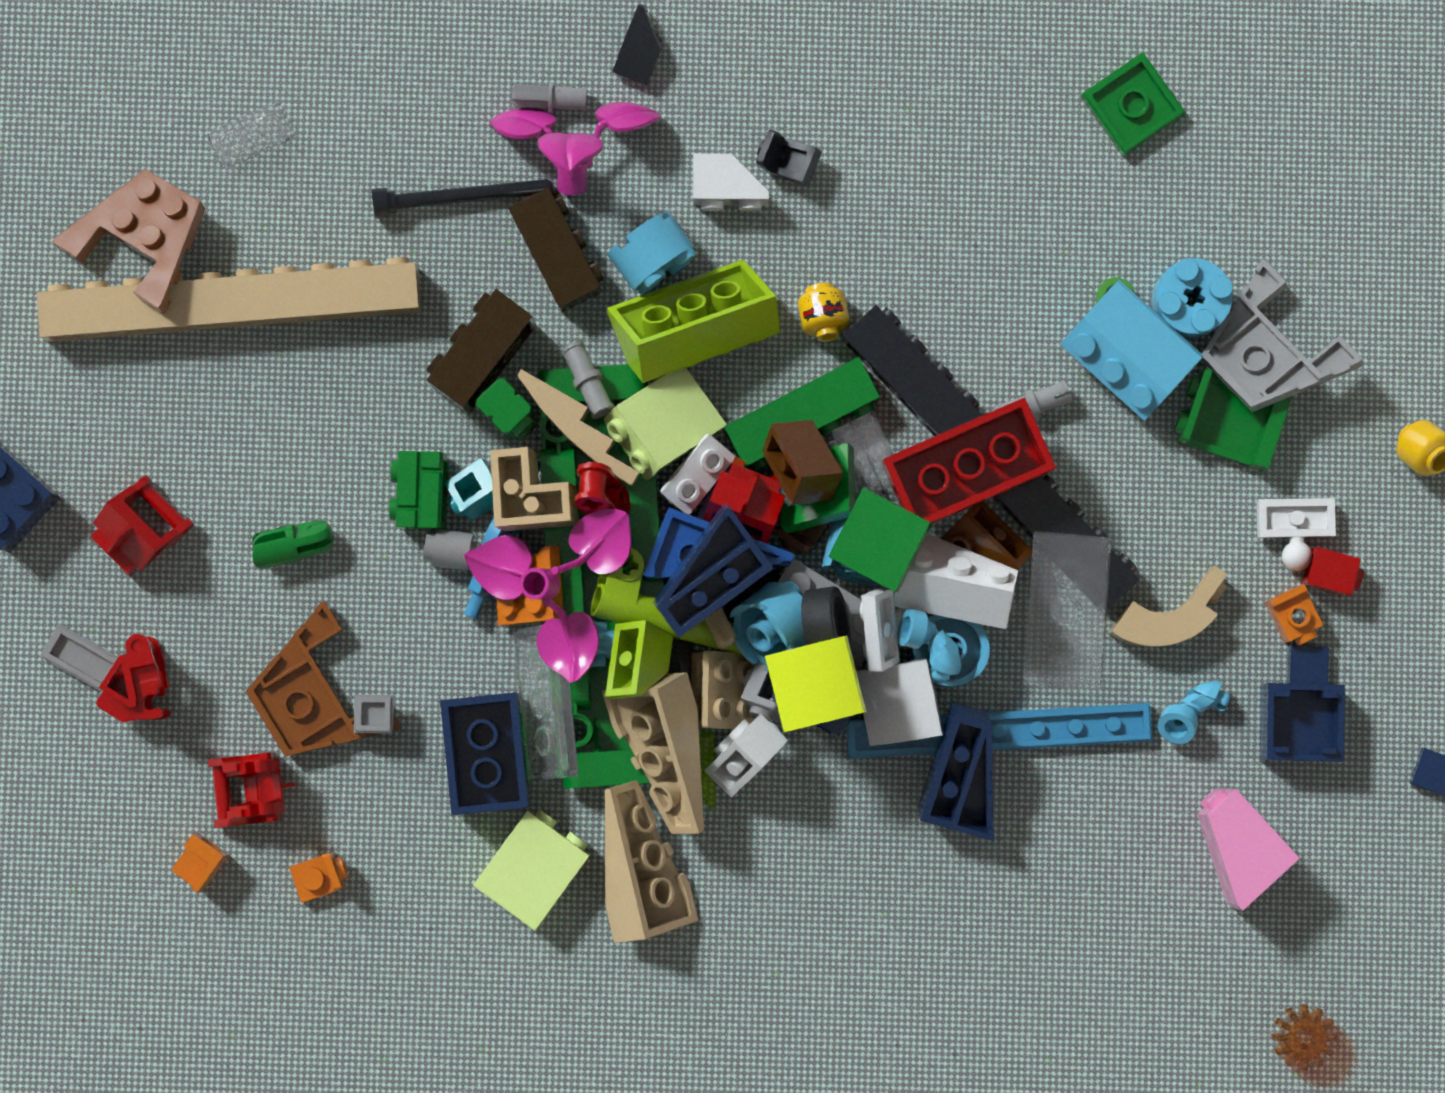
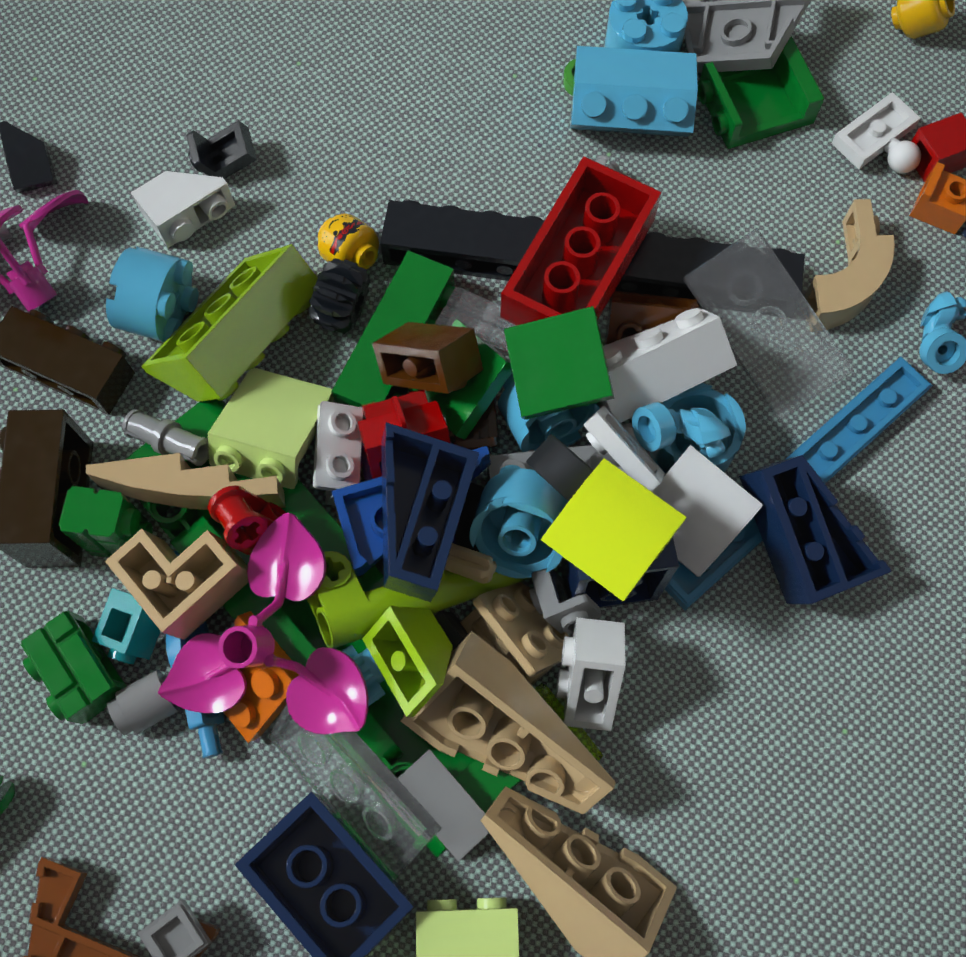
camera: 40 degrees left, 15 degrees down
(592, 761) = (446, 803): none -> light grey tile
(784, 354) = (339, 295): none -> black gear

